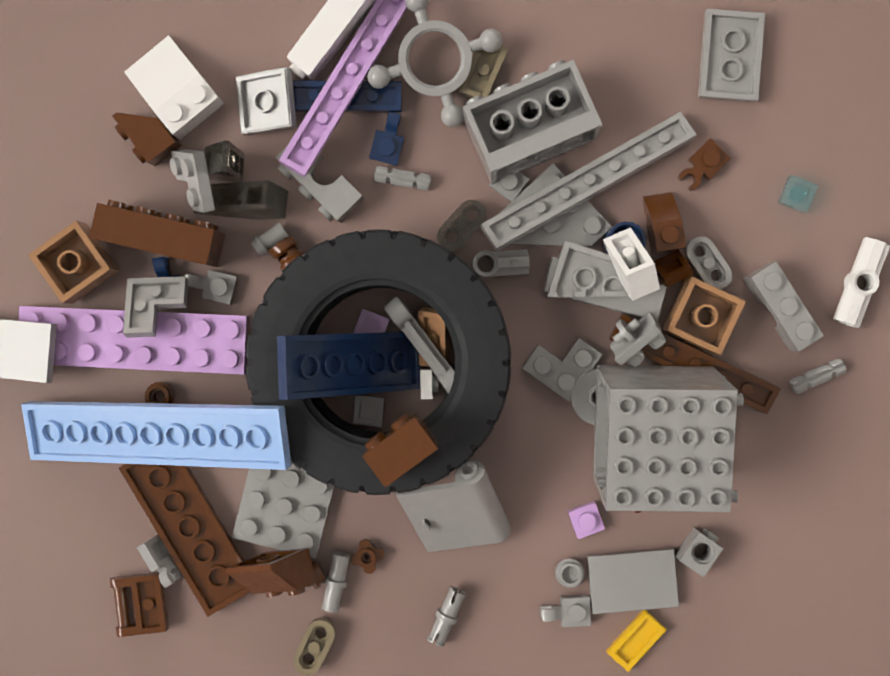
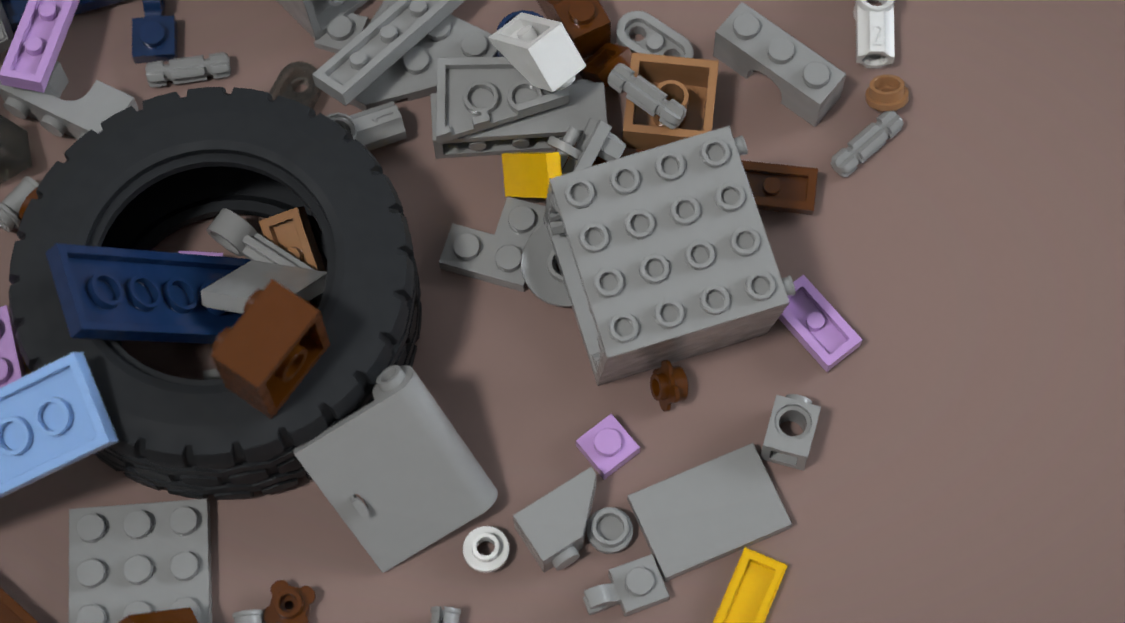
camera: 25 degrees left, 20 degrees down
(409, 371) = (234, 289): none -> light grey tile
(492, 551) = (490, 562): none -> white plate
(542, 561) = (558, 522): none -> light grey slope
(599, 337) = (529, 173): none -> yellow tile
(691, 314) = (646, 96): none -> light grey axle
(748, 495) = (818, 325): none -> lavender plate
(847, 343) = (887, 93): none -> medium nougat plate

